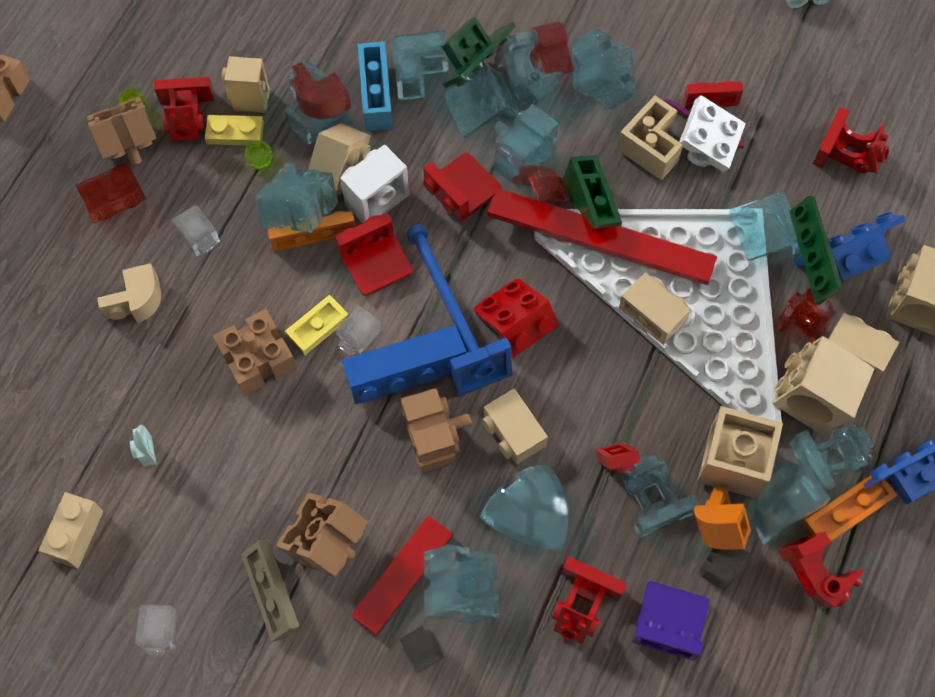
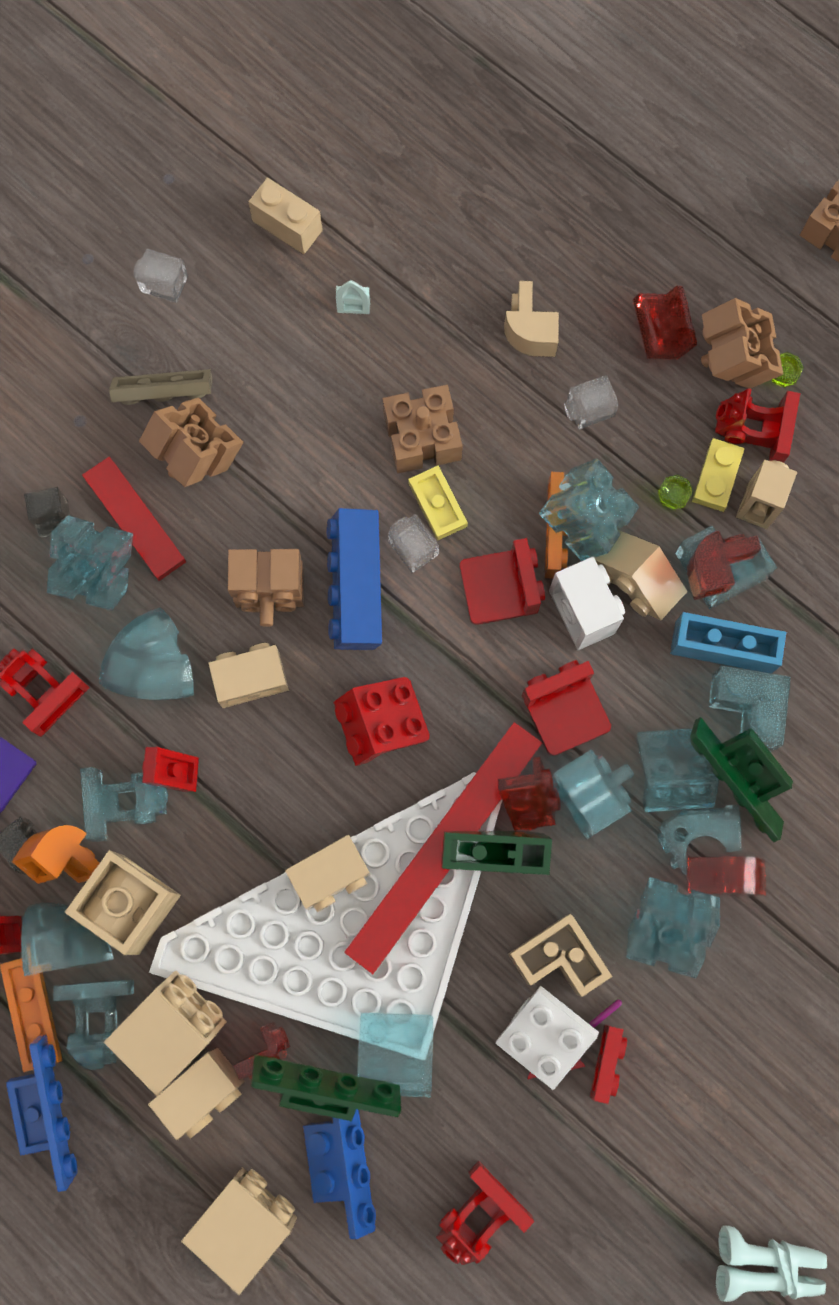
camera: 105 degrees right, 10 degrees up
(478, 366) = (327, 655): blue tile -> none

